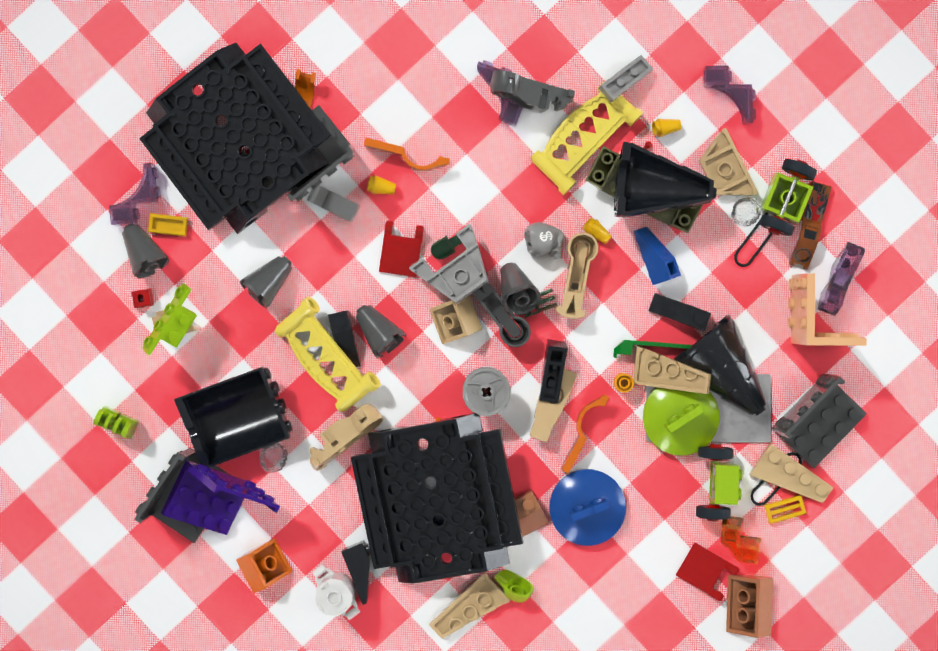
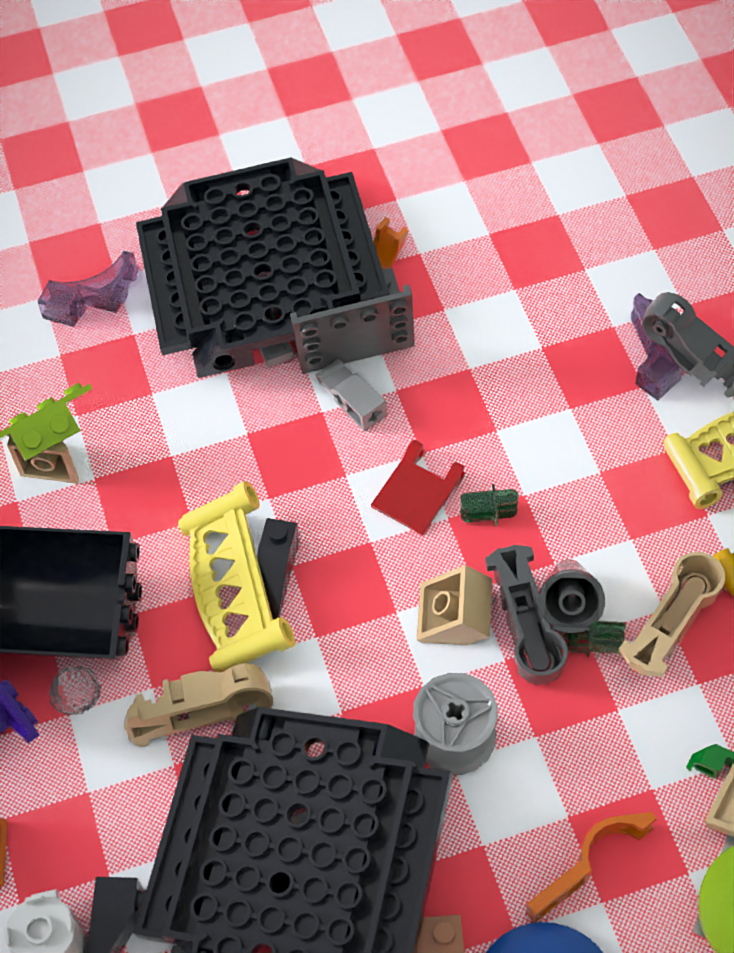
camera: 25 degrees right, 30 degrees down
(142, 252) = (57, 355): dark grey cone -> none
(147, 295) = (25, 401): red piece -> none
(167, 224) = (112, 338): yellow tile -> none
(267, 280) = (204, 447): dark grey cone -> none
(378, 185) = (427, 396): yellow cone -> none
(379, 331) = (331, 580): dark grey cone -> none
(399, 150) = (473, 362): orange piece -> none
(459, 276) = (488, 536): light grey wing -> none
(544, 239) = (641, 549): light grey piece -> none
(547, 412) = (555, 793): tan piece -> none
(553, 370) = (577, 742): black slope -> none
(625, 380) = (685, 818): light orange wheel -> none

